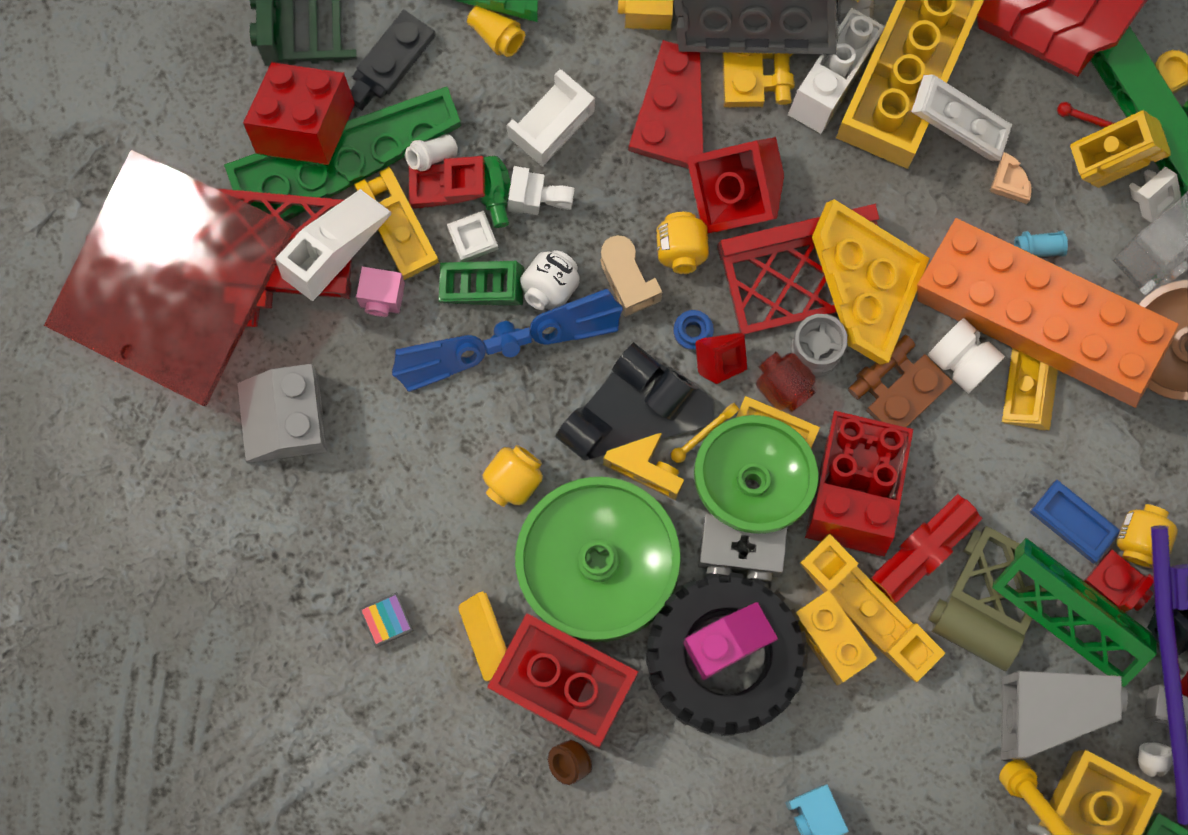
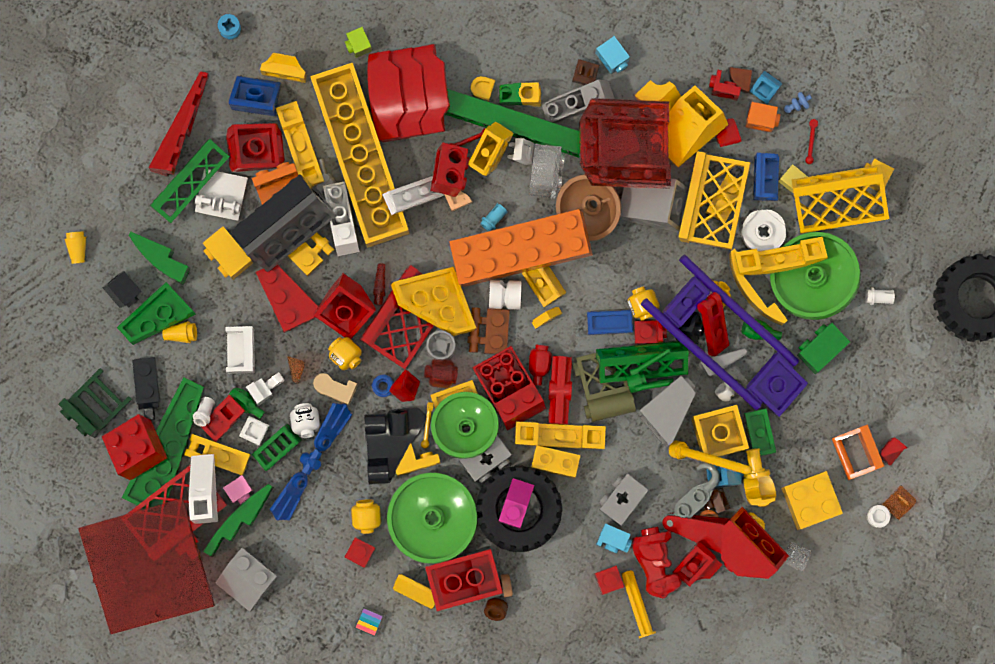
camera: 45 degrees left, 5 degrees up
(361, 328) = (245, 513): none -> green slope
(459, 516) = (360, 552): none -> red brick
(600, 206) = (296, 369): none -> clear orange slope
(613, 743) = (506, 585): none -> medium nougat tile
(807, 199) = (379, 285): none -> clear red animal
(905, 769) = (619, 512): none -> light grey brick
(931, 488) = (539, 363): none -> red plant
(995, 436) = (546, 317): none -> yellow tile
(1046, 125) = (446, 168): none -> red brick
(1047, 634) = (638, 382): none -> green plant

